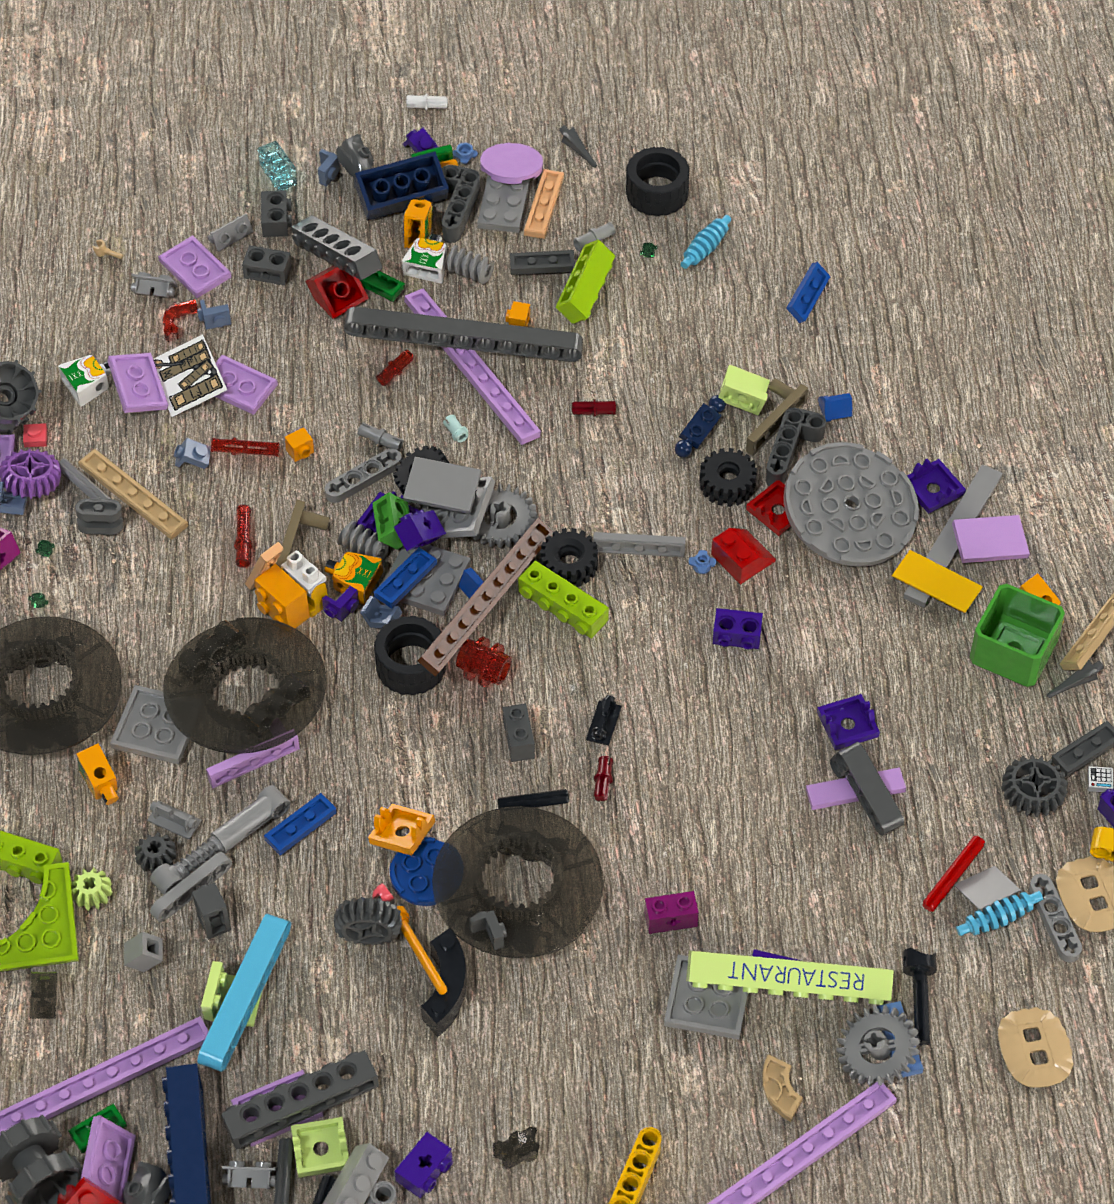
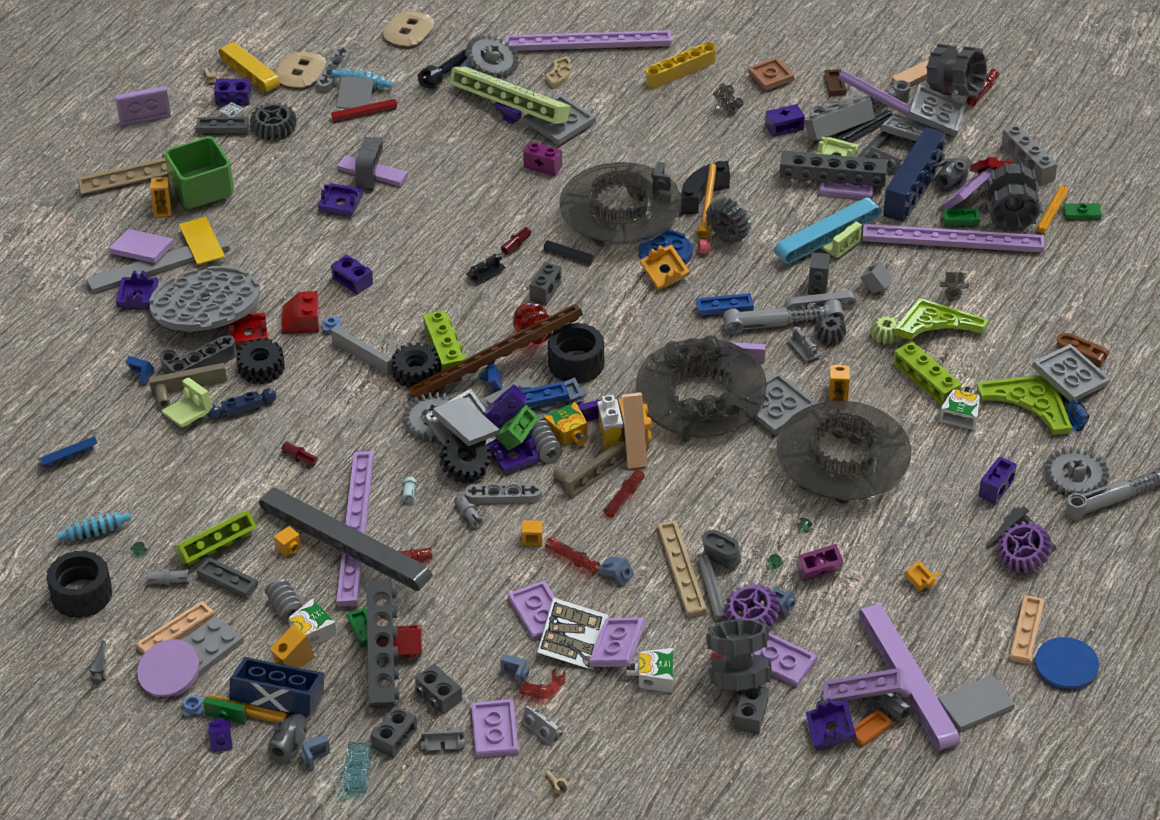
camera: 145 degrees left, 10 degrees down
(426, 101) = (177, 772): white axle -> none
(465, 187) = (224, 664): dark grey beam -> none

